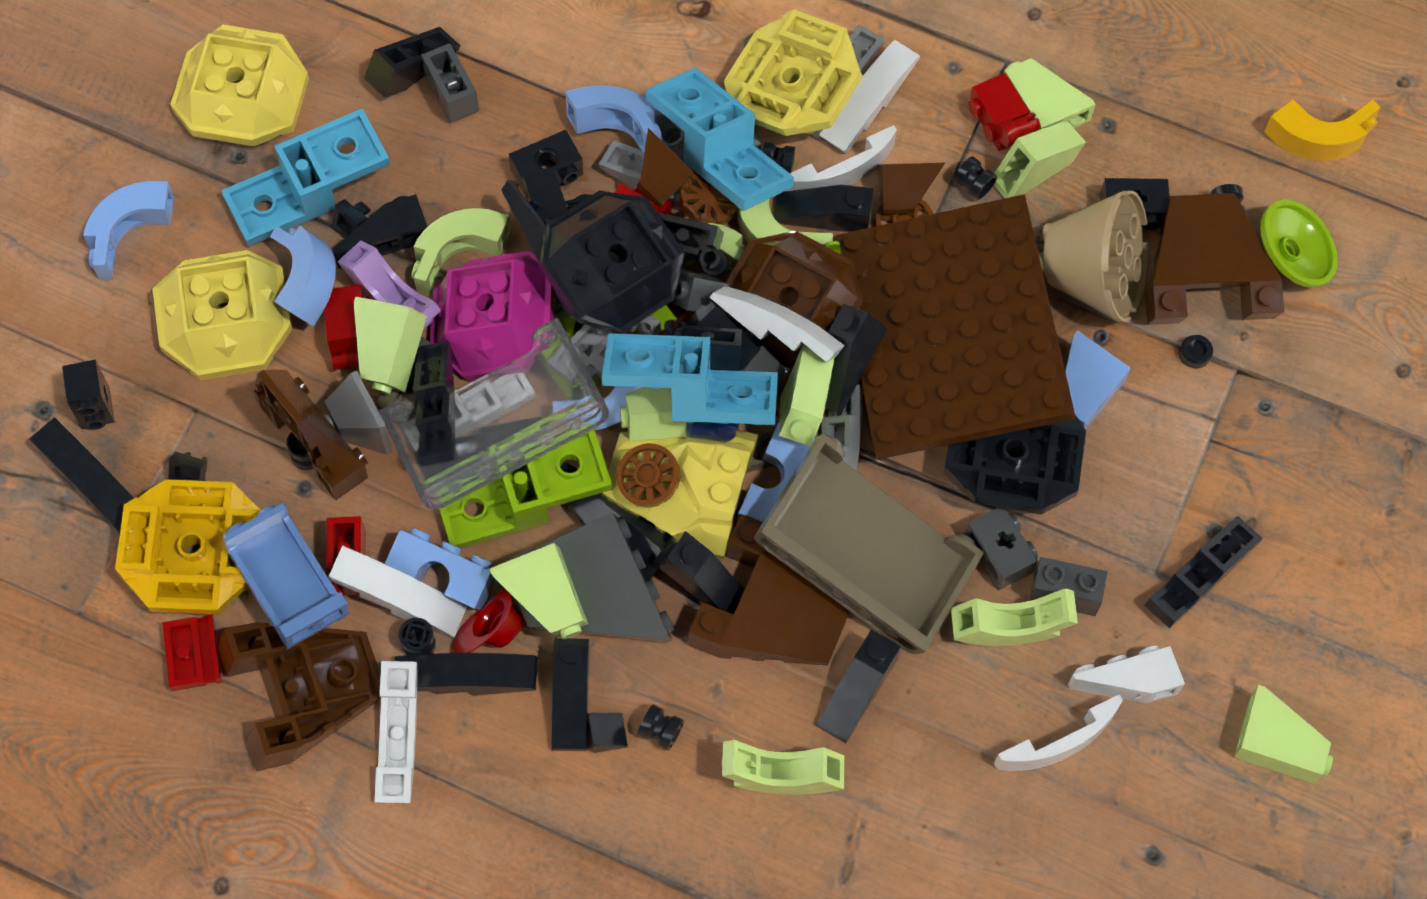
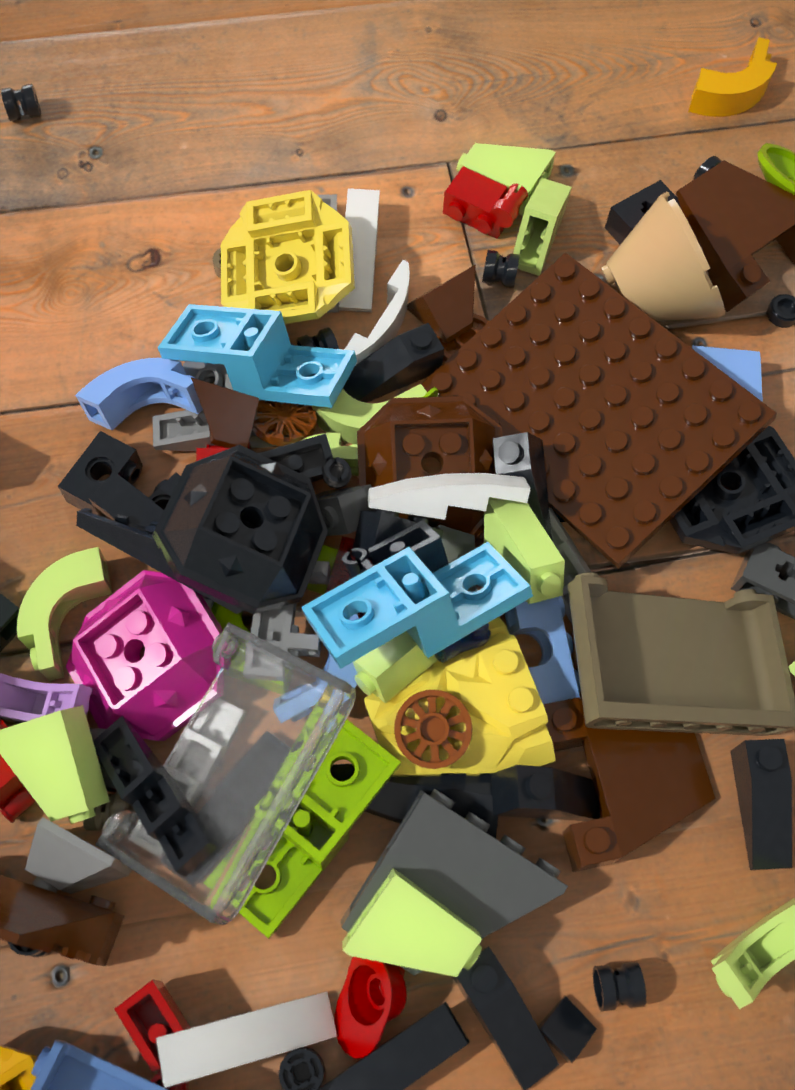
camera: 35 degrees left, 0 degrees up
(469, 579) = (309, 959): light blue arch -> none

